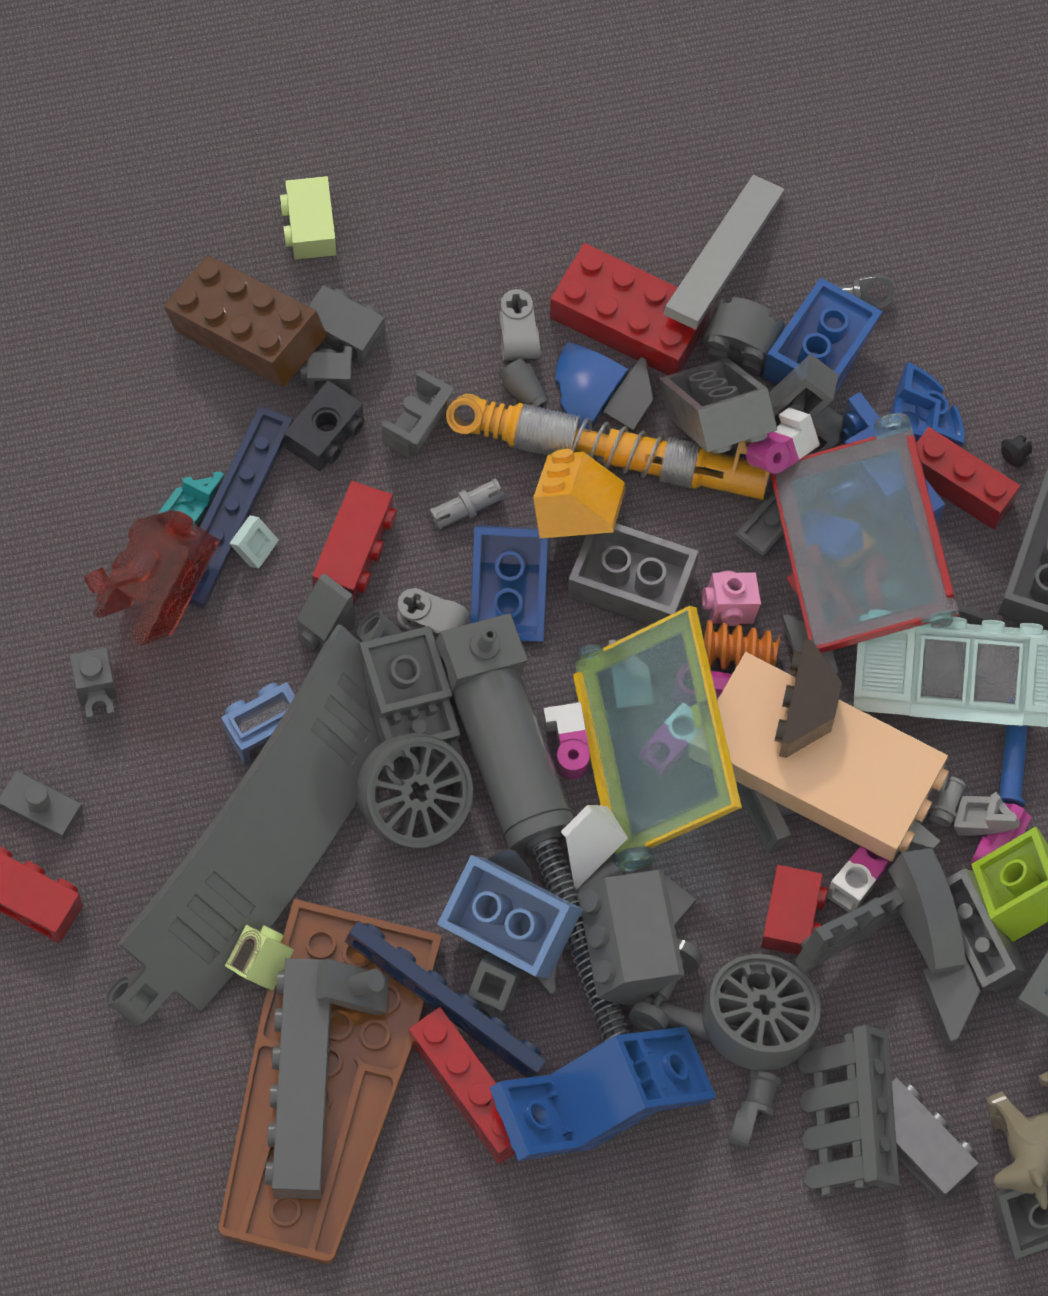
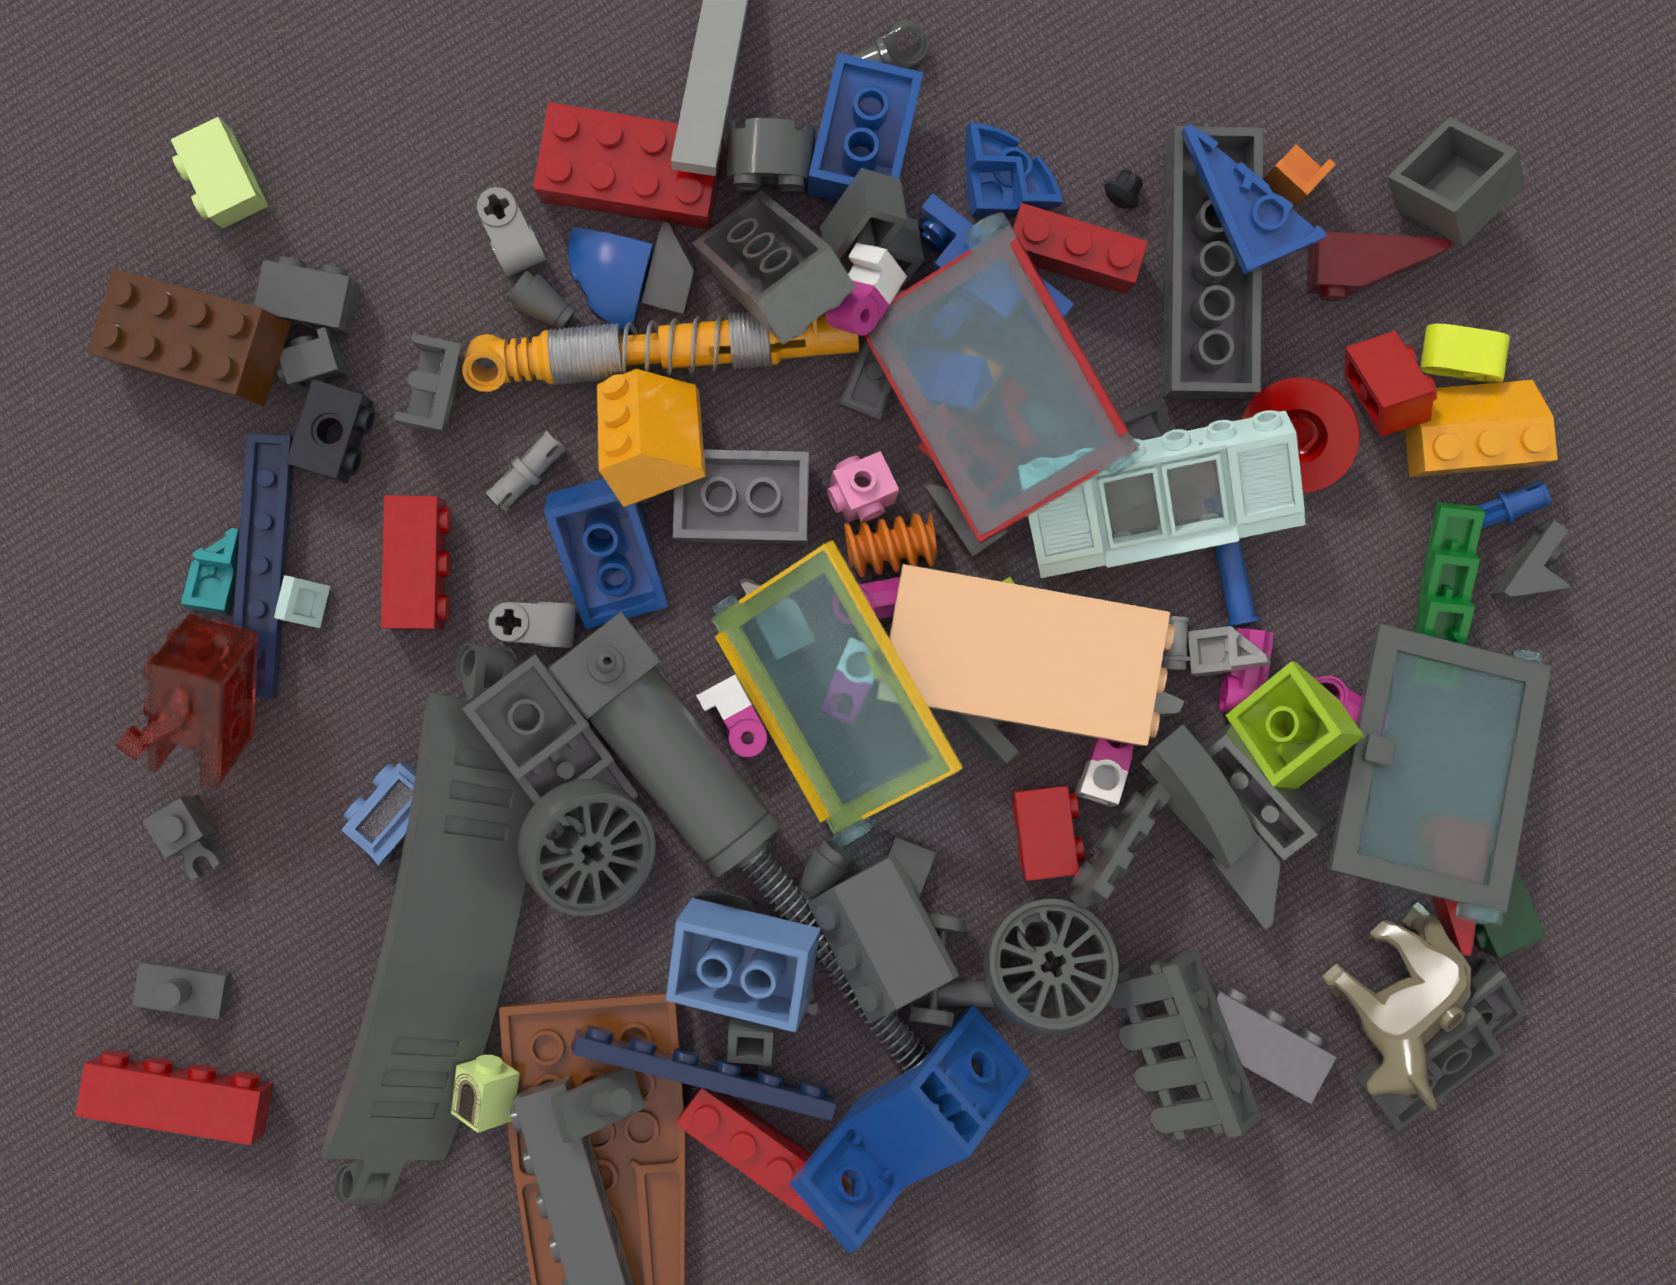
camera: 20 degrees left, 20 degrees up
(323, 611) = (413, 669): dark grey slope -> none
(592, 840) = (804, 836): white slope -> none
(757, 1104) = (1076, 1062): dark grey connector -> none
(810, 701) = (998, 607): dark brown slope -> none

